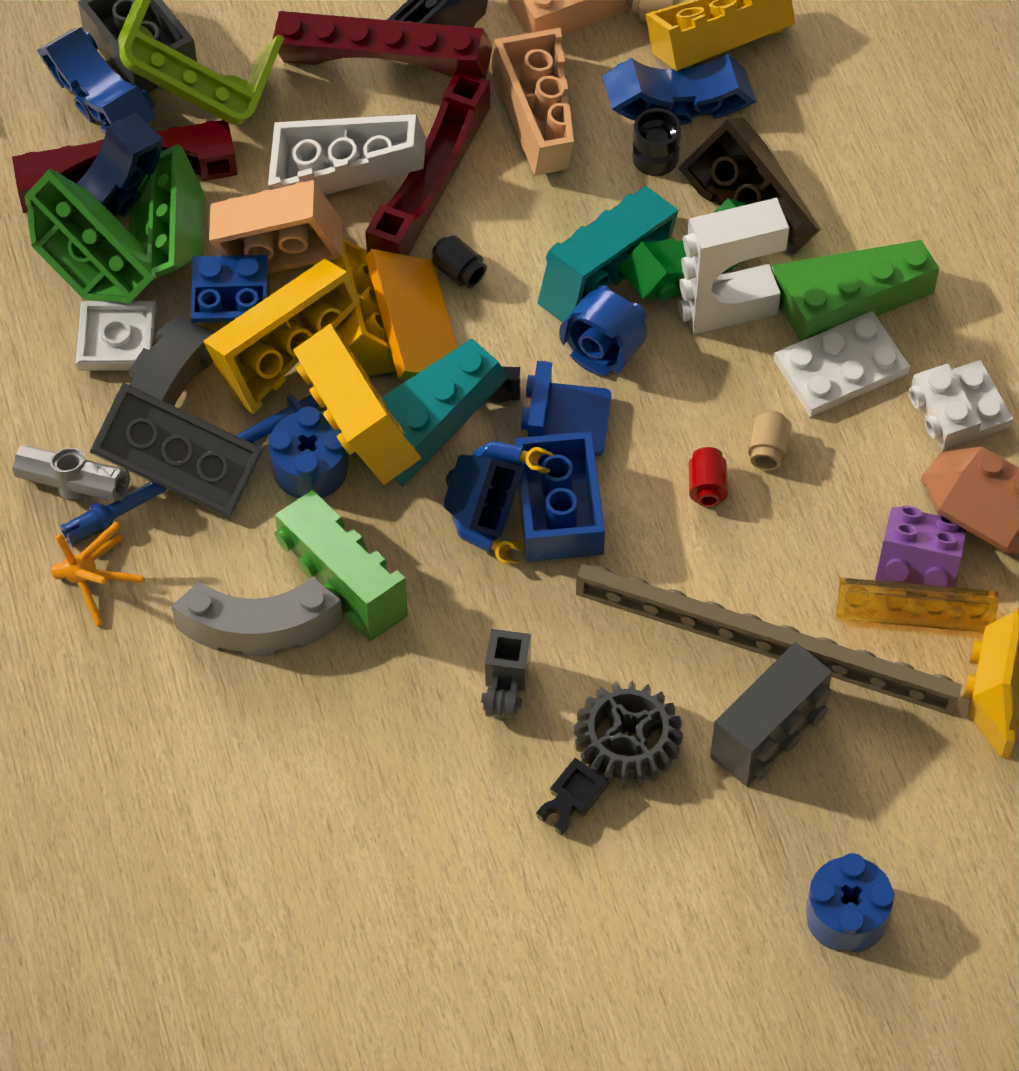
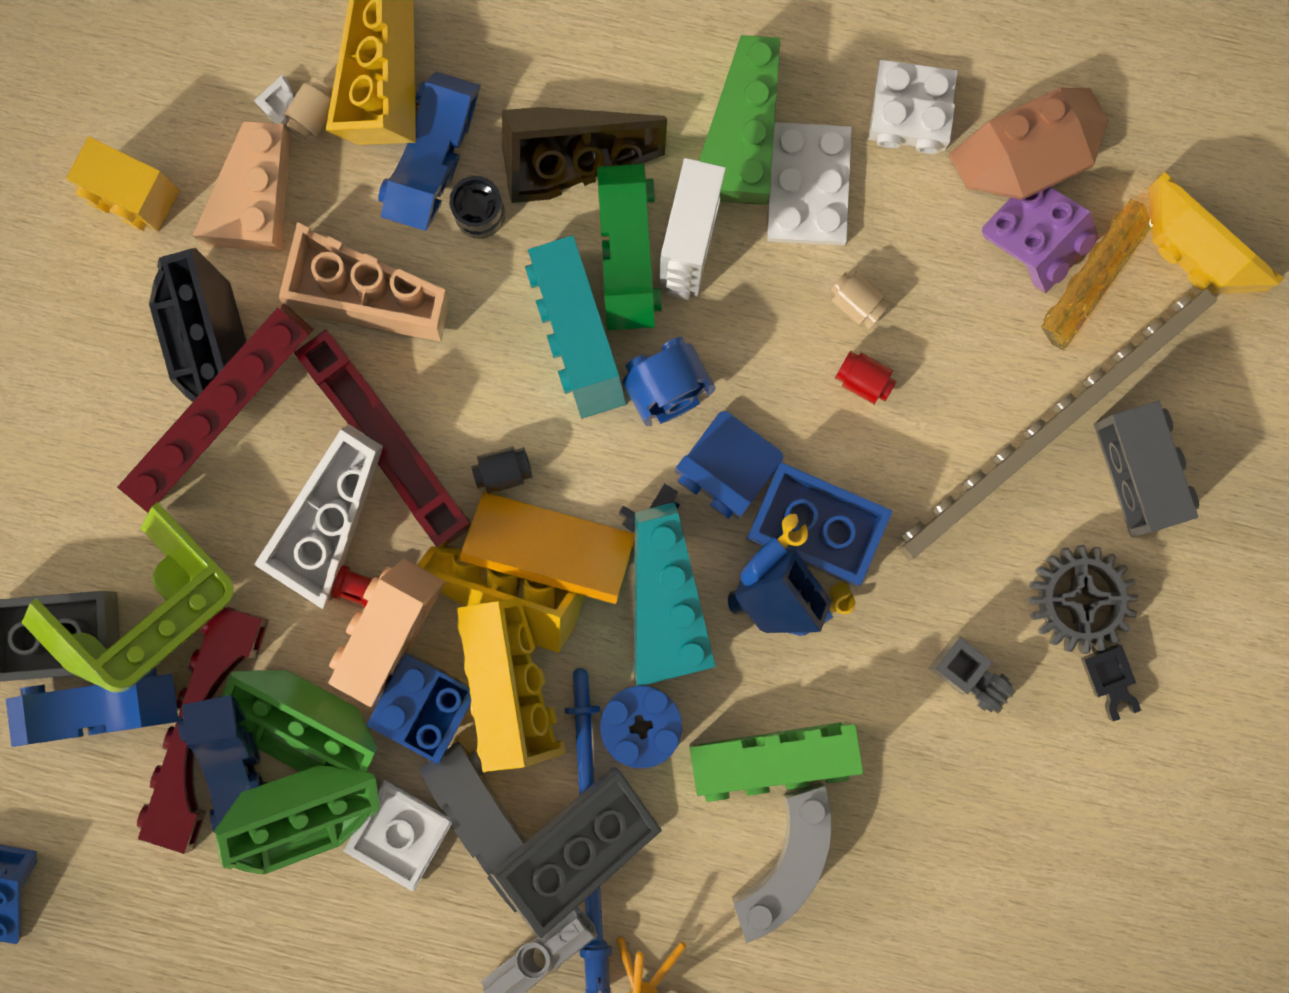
camera: 60 degrees left, 25 degrees up
(354, 405) = (639, 671): yellow wedge -> none

